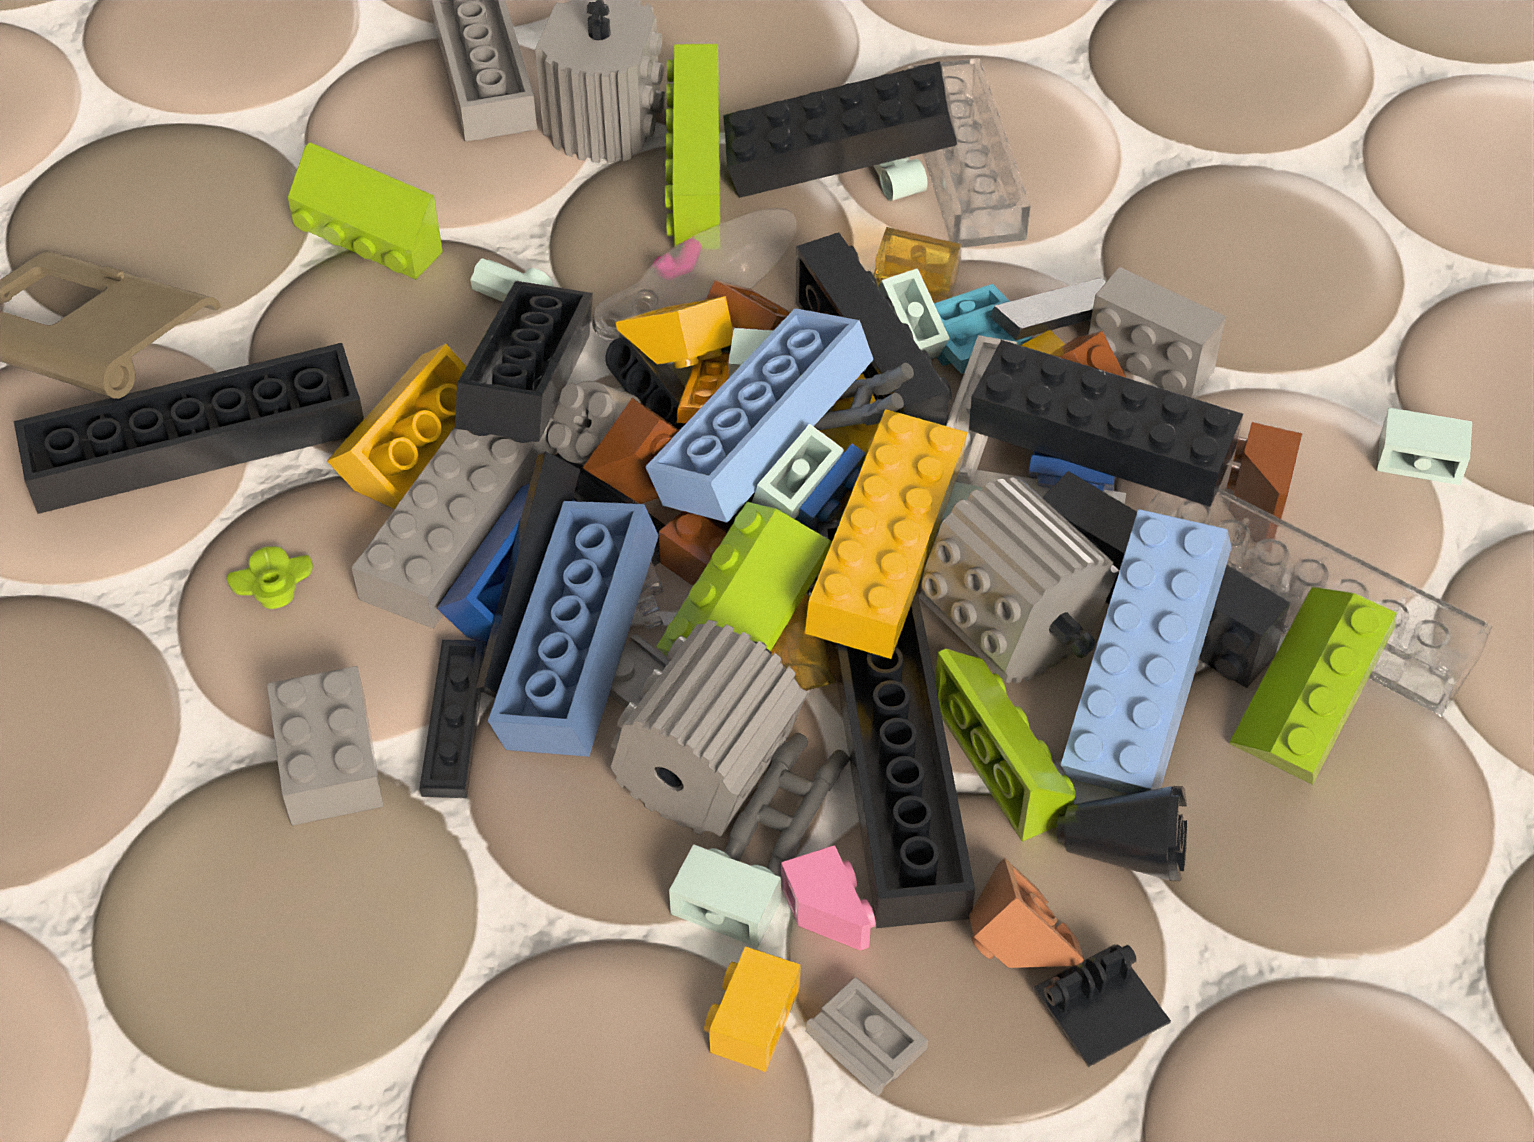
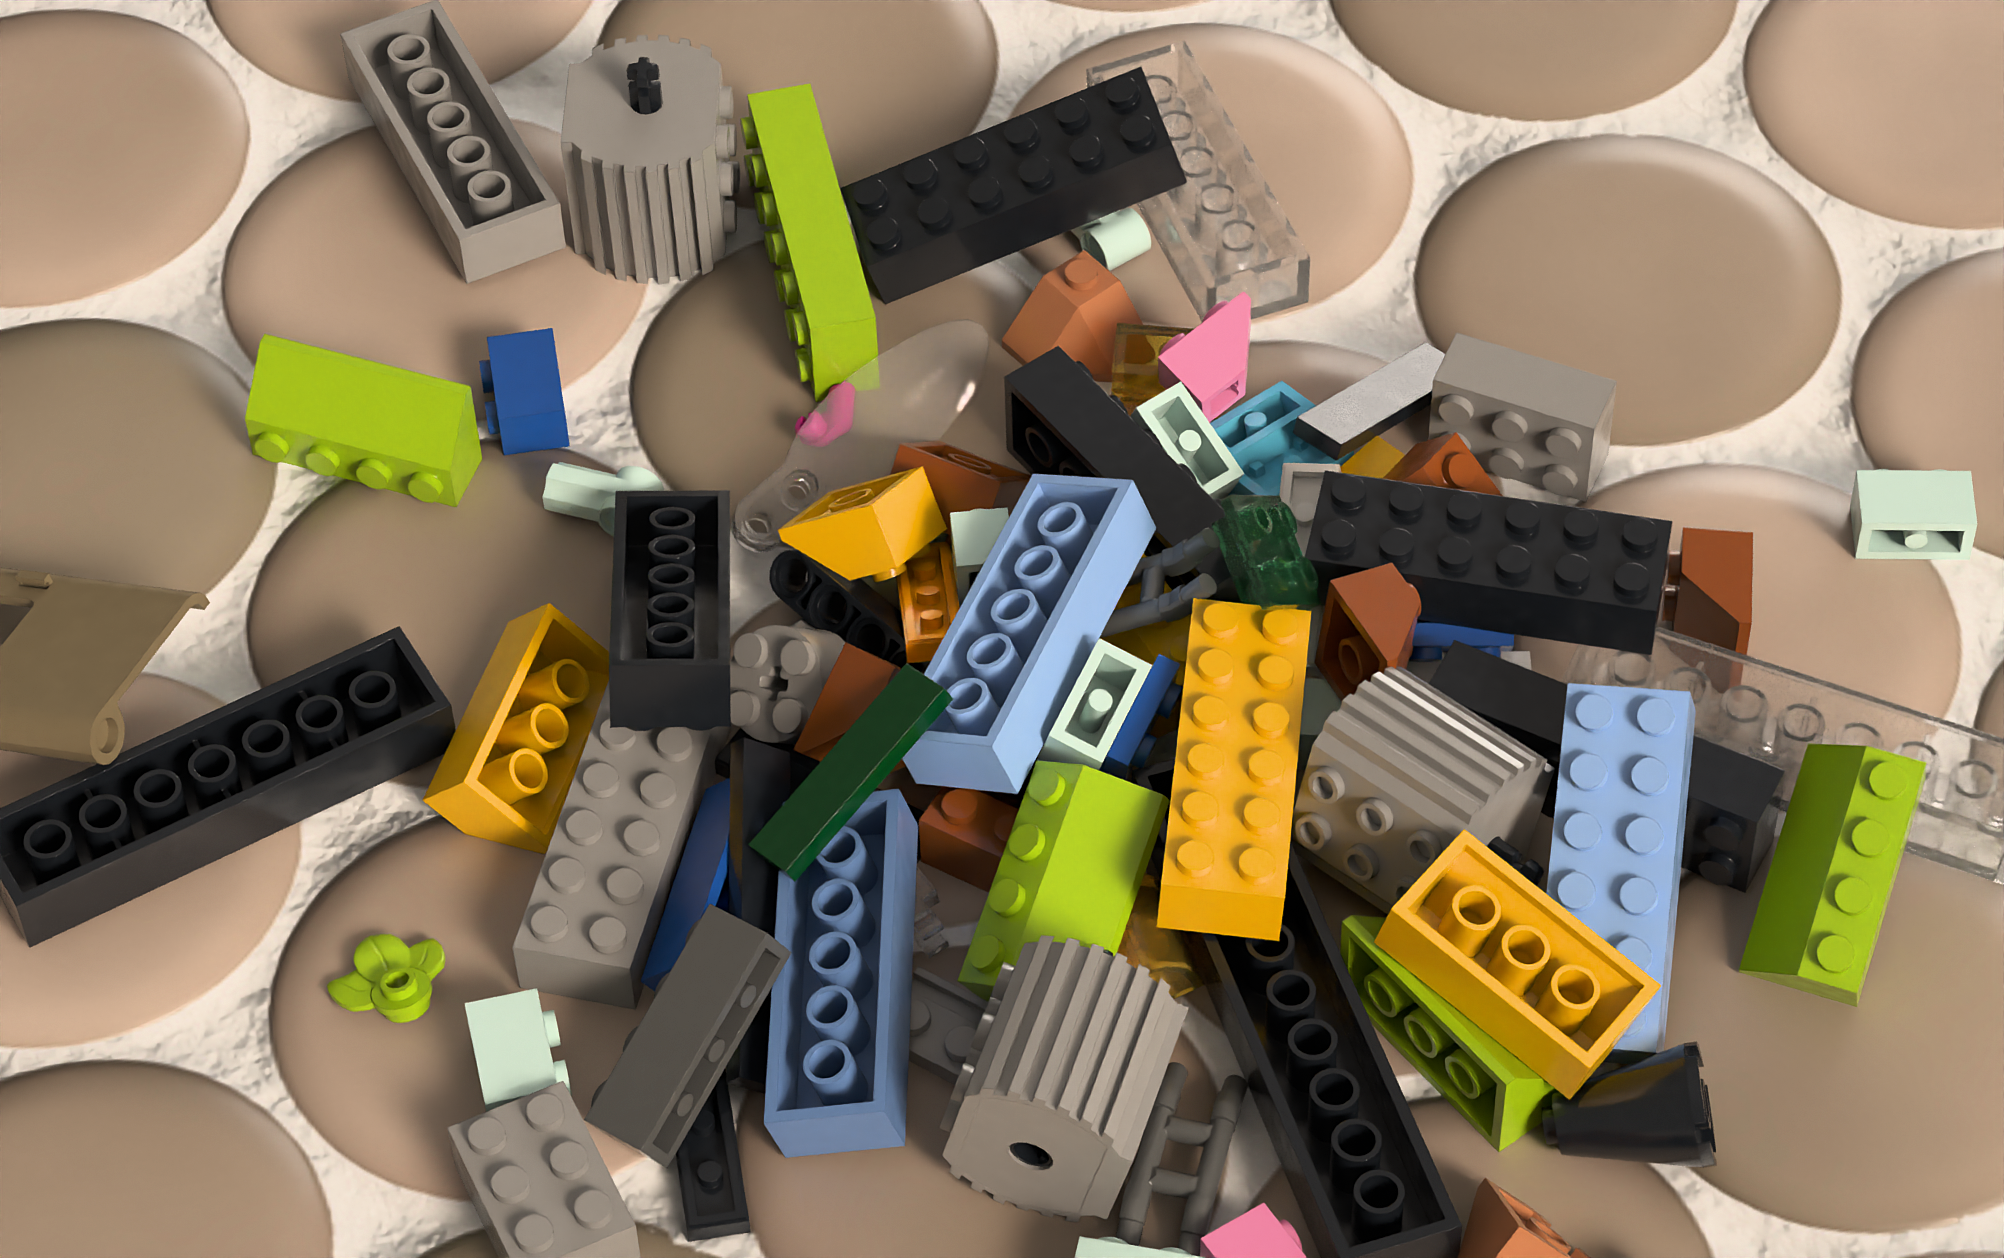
camera: 10 degrees left, 0 degrees up
(336, 637) = (514, 1046): none -> light aqua brick
(451, 650) = (687, 1035): none -> dark grey brick
(481, 212) = (526, 390): none -> blue brick
(611, 486) = (850, 772): none -> dark green tile
(861, 219) = (1075, 310): none -> nougat slope
(943, 385) = (1265, 554): none -> clear green bracket
(945, 257) = (1211, 357): none -> bright pink slope
(1007, 447) = (1366, 627): none -> dark orange slope
(1057, 704) = (1516, 963): none -> yellow slope

